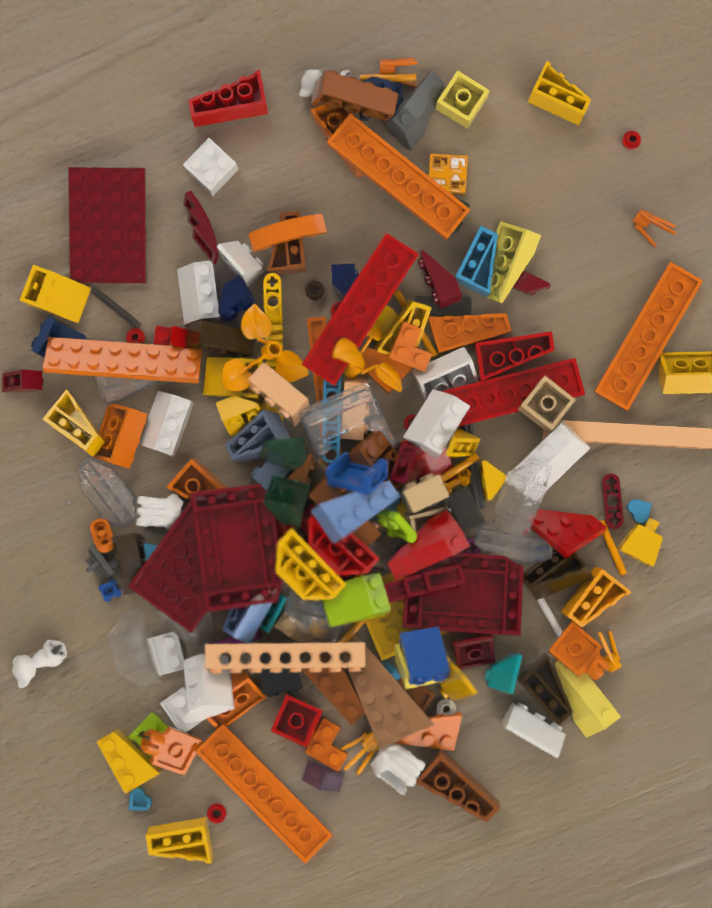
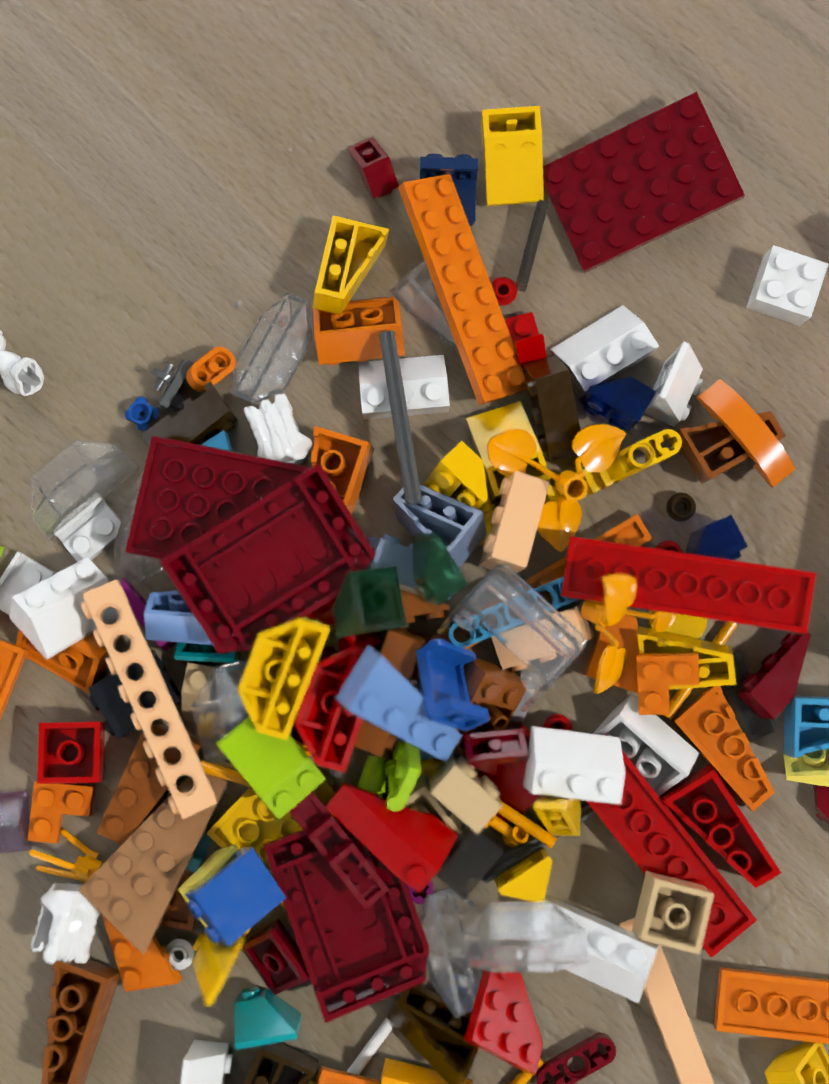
camera: 65 degrees right, 0 degrees up
(184, 433) = (400, 417): none -> dark grey axle
(202, 229) = (696, 313): dark red slope -> none
(391, 544) = (373, 776): none -> lime cone

